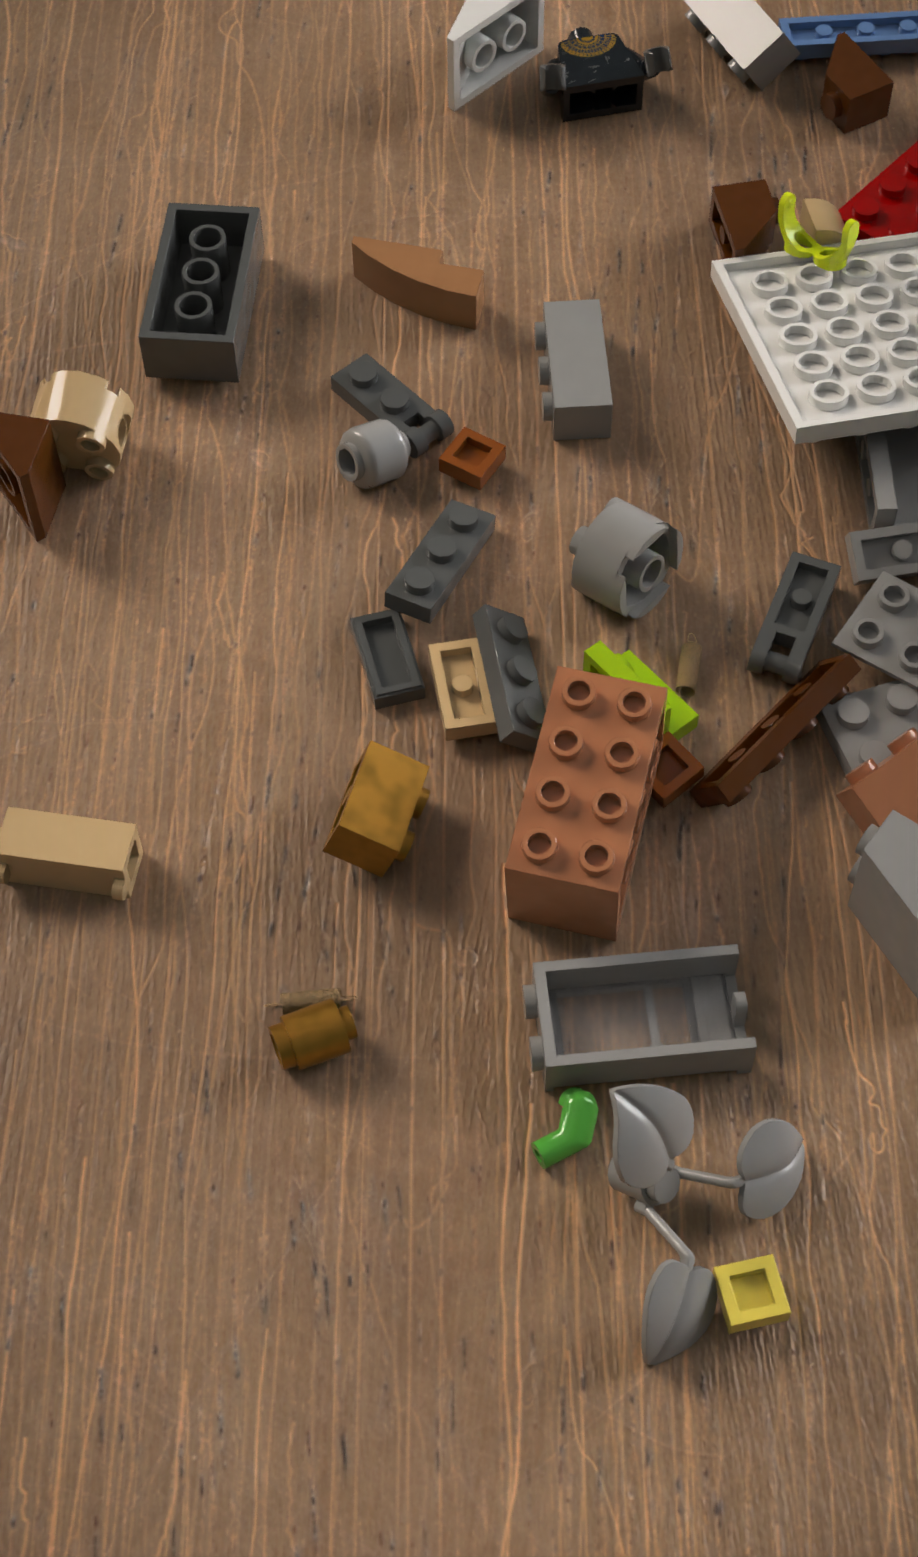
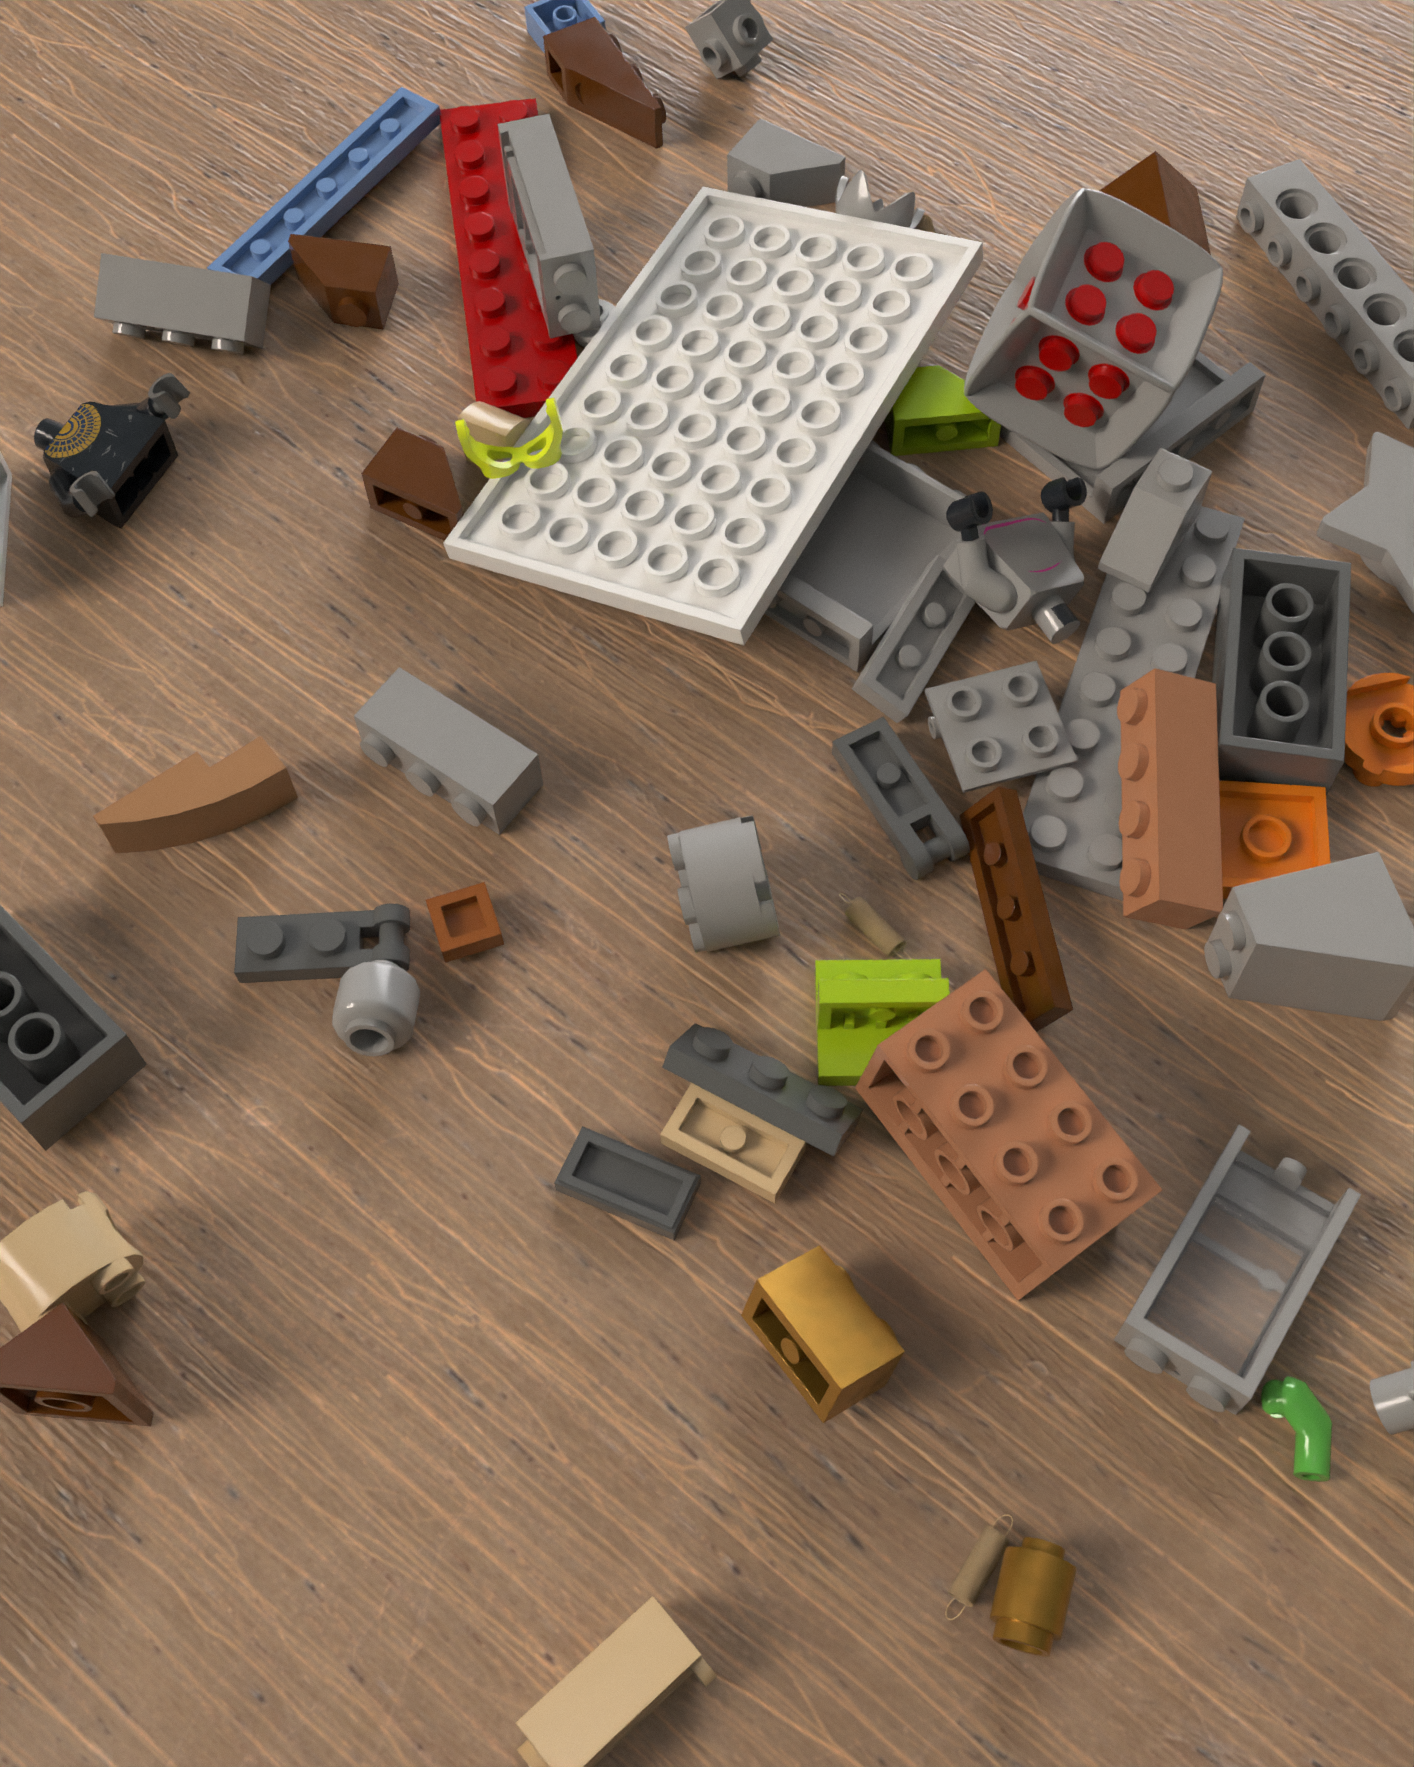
camera: 50 degrees left, 5 degrees up
(440, 561) = (563, 1046): dark grey plate -> none

